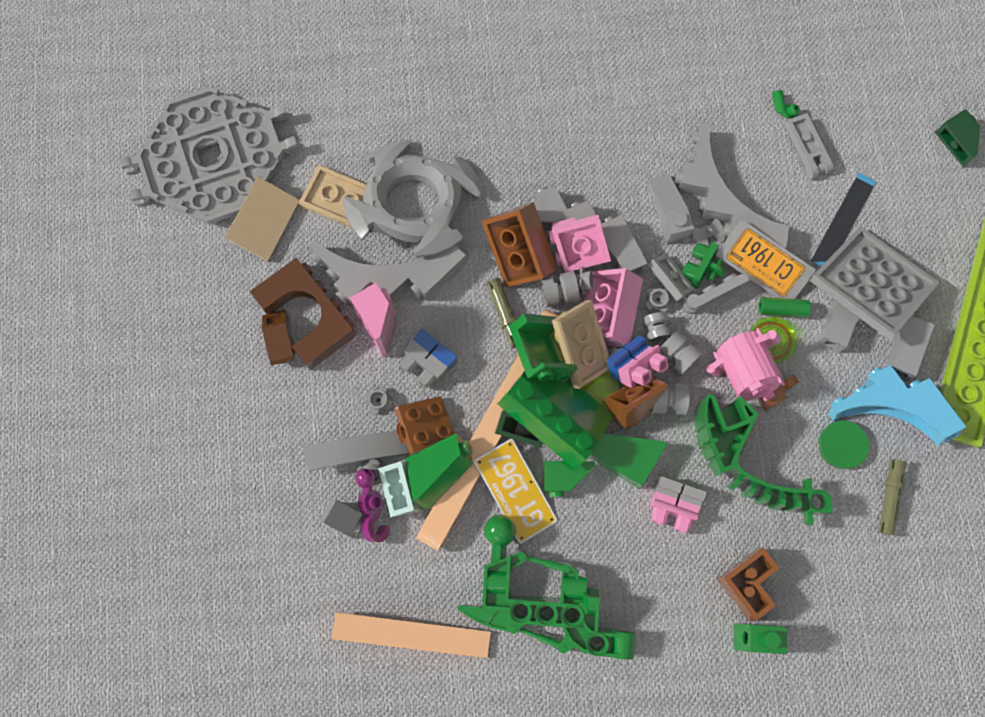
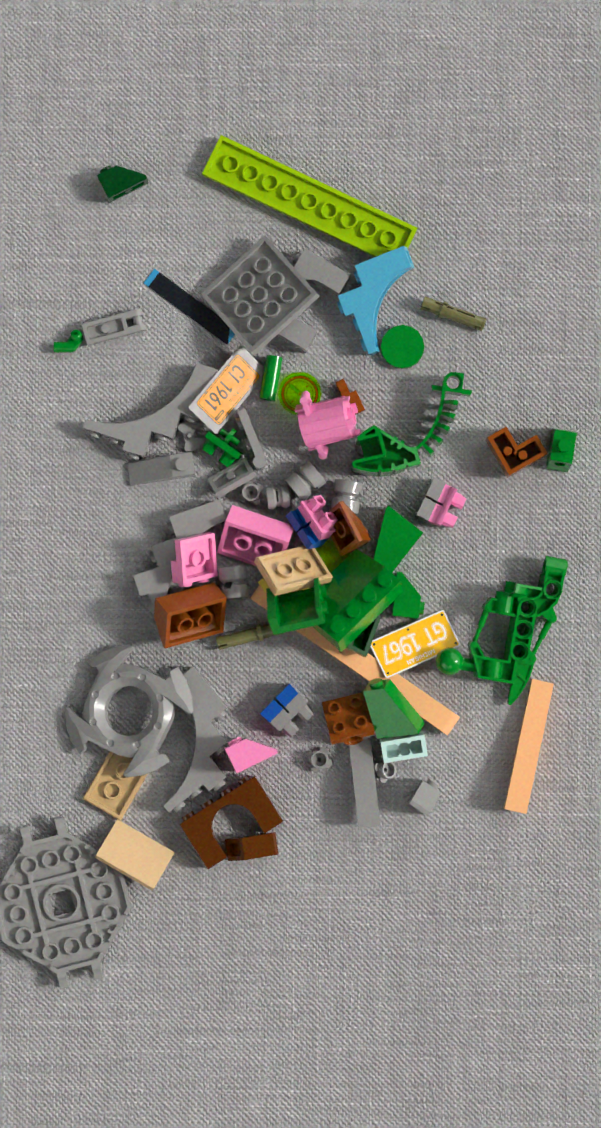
camera: 80 degrees left, 10 degrees up
(370, 505) = (415, 772): magenta piece -> none
(585, 280) = (228, 558): light grey plate -> none

